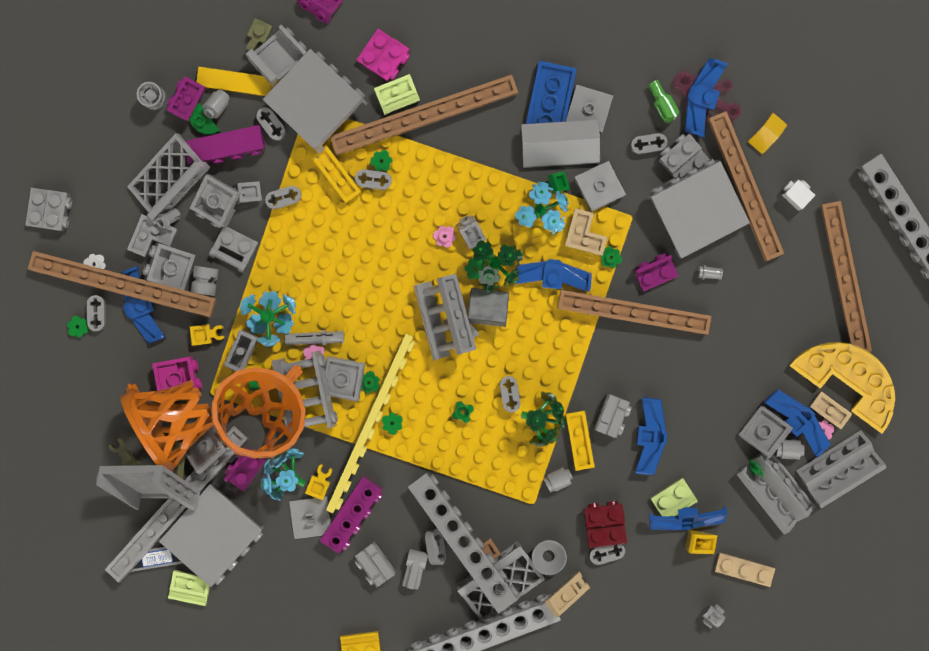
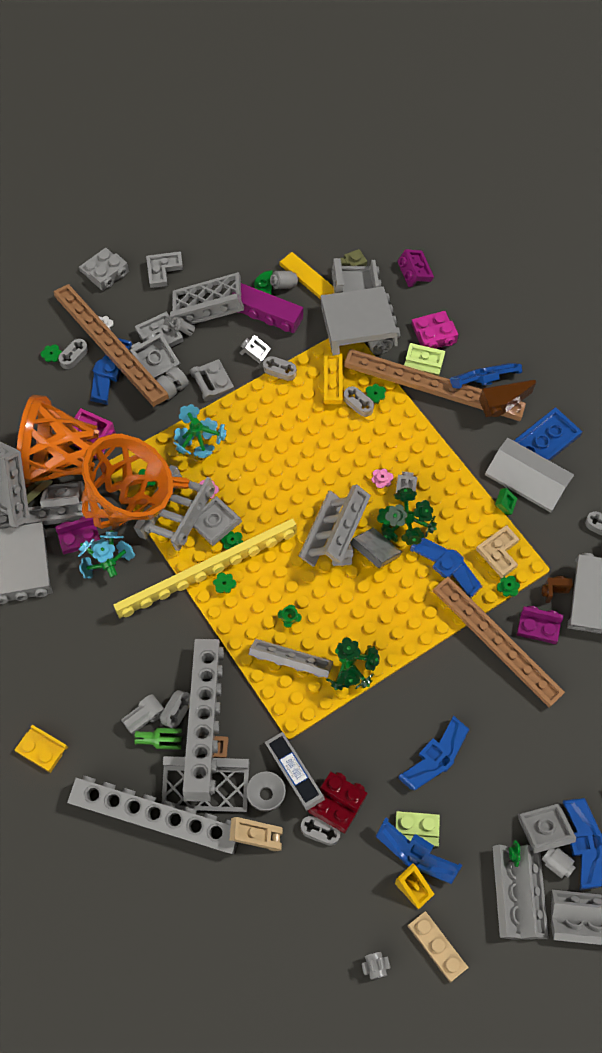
camera: 35 degrees right, 25 degrees down
(94, 168) = (160, 264): none -> light grey plate
(151, 95) = (242, 245): light grey wheel -> none
(185, 98) = (265, 262): magenta bracket -> none
(203, 334) = (137, 419): yellow plate -> none
(215, 201) = (226, 336): light grey plate -> none
(241, 350) = (160, 439): light grey brick -> none
(267, 126) = (316, 320): light grey beam -> none
(309, 517) = (94, 613): light grey piece -> none
(314, 338) = (223, 480): light grey pin -> none
(319, 485) = (123, 588): yellow plate -> none
(351, 514) = (129, 631): magenta brick -> none
(374, 564) = (114, 685): light grey brick -> none
(442, 576) = (156, 738): none -> bright green arm
(458, 73) = (485, 375): none -> blue plate
(490, 94) = (500, 399): none -> reddish brown slope
(490, 446) = (285, 656): none -> light grey plate
(505, 395) = (336, 627): light grey beam -> none
(551, 220) = (479, 506): medium azure plant -> none
(558, 479) = (326, 732): light grey brick -> none
(558, 527) = (294, 771): none -> tile
(580, 440) = (370, 713): yellow plate -> none
(589, 105) = (576, 463): light grey plate -> none
(599, 186) = (539, 527): light grey plate -> none
(612, 416) = (415, 712): light grey brick -> none
(648, 226) = (556, 585): none -> reddish brown bracket
(709, 272) = (587, 658): light grey pin -> none

